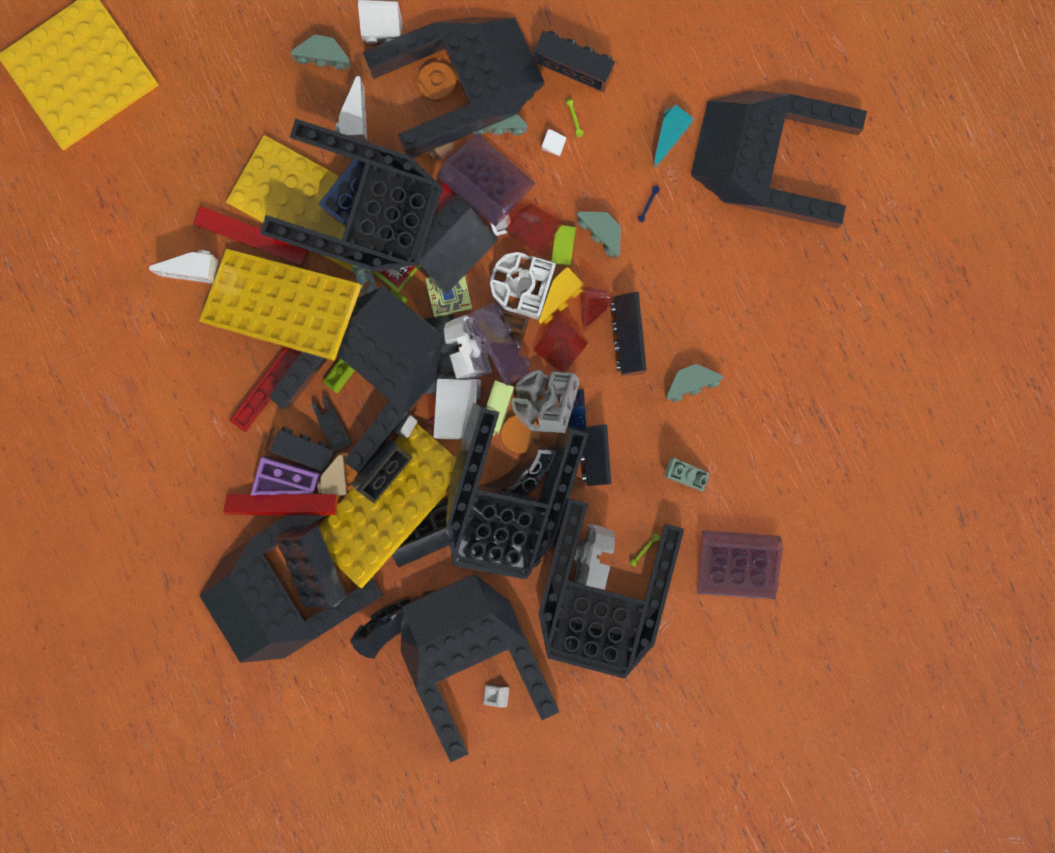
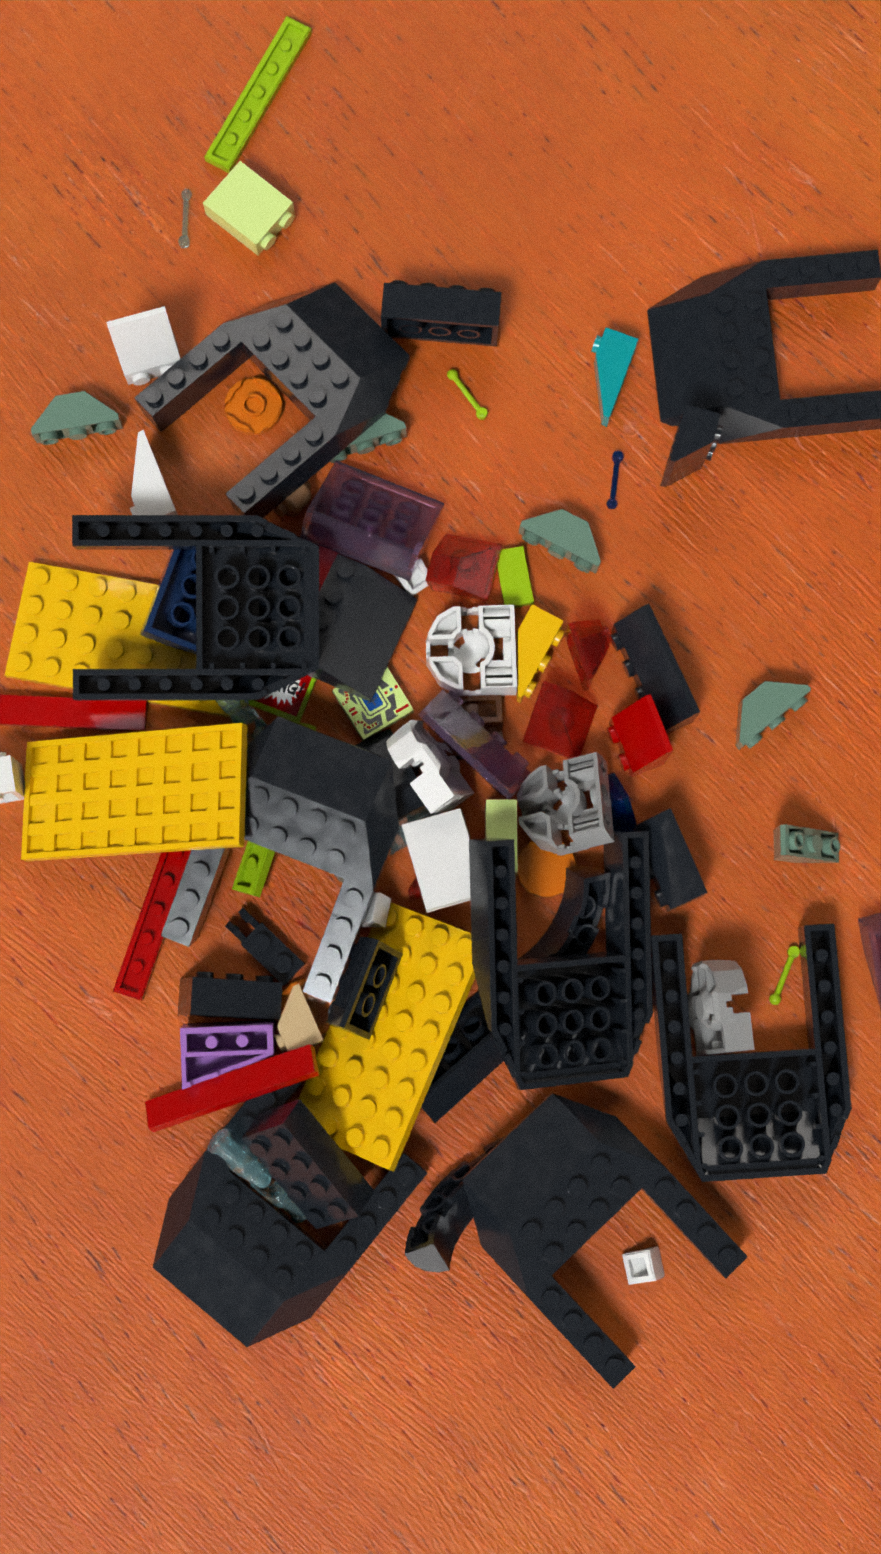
camera: 25 degrees left, 5 degrees down
(275, 557) = (247, 1166): none -> clear light blue piece
(553, 142) = (450, 438): white slope -> none
(604, 373) = (640, 737): none -> red slope
(702, 198) = (692, 444): none -> black slope

